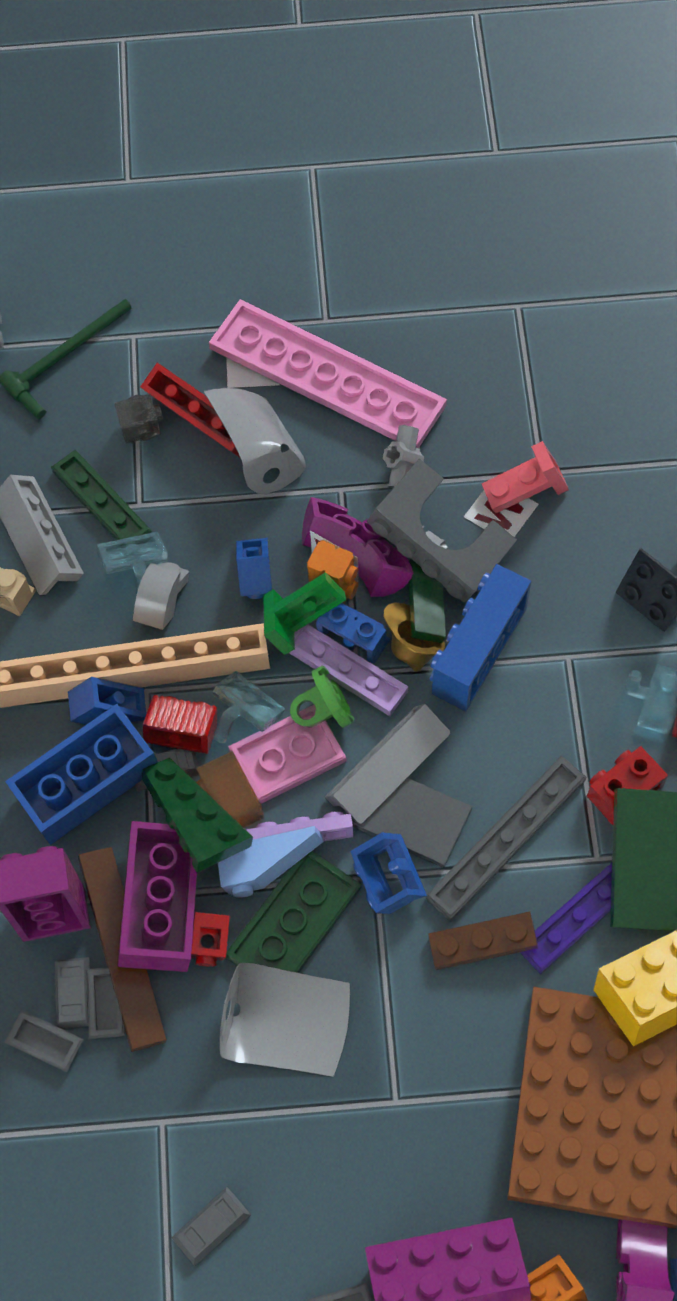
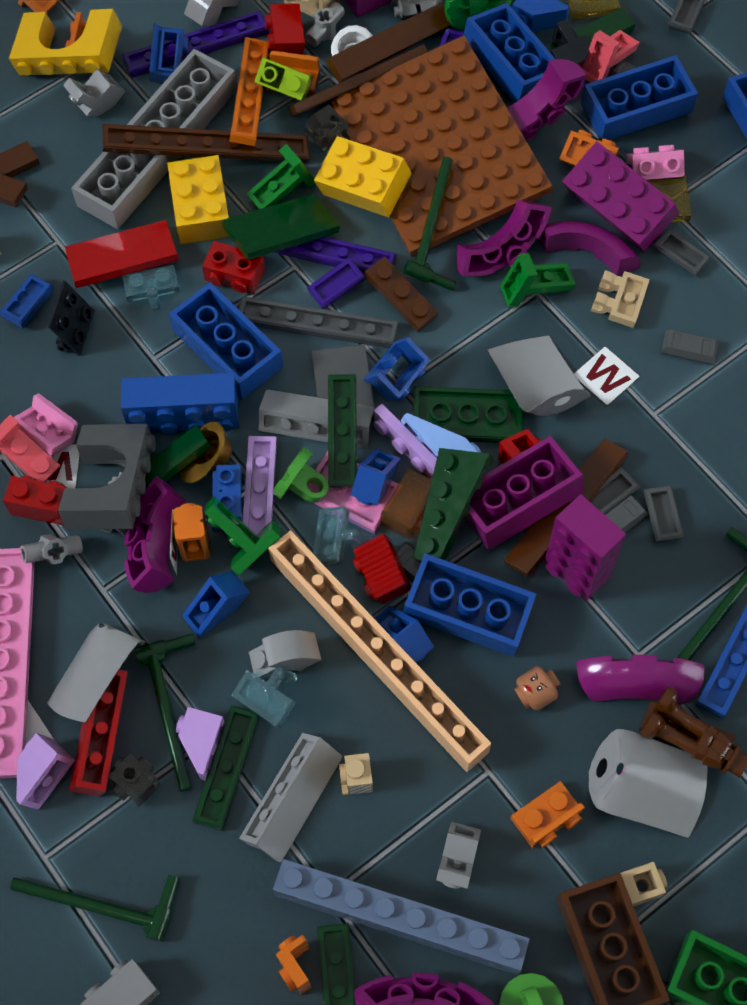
camera: 125 degrees left, 0 degrees up
(137, 486) = (200, 736): none -> lavender slope
(202, 357) = (40, 770): none -> lavender slope
(242, 1104) = (606, 375): none -> white sticker
(243, 495) = (152, 655): none -> dark green bar
(277, 773) = (374, 477): none -> blue slope
(312, 1192) = (628, 299): none -> tan plate
(346, 767) = (342, 430): none -> dark green tile
(399, 1103) = (534, 279): none -> green bracket
(421, 1210) = (585, 236): none -> magenta brick
(465, 470) = (34, 499): none -> red brick
(473, 1096) = (503, 248): none -> magenta brick
(499, 975) = (417, 266): none -> dark green bar
(533, 722) = (226, 339): none -> blue brick
(541, 514) = (47, 425): none -> bright pink bracket
(541, 881) = (336, 283): none -> dark purple tile

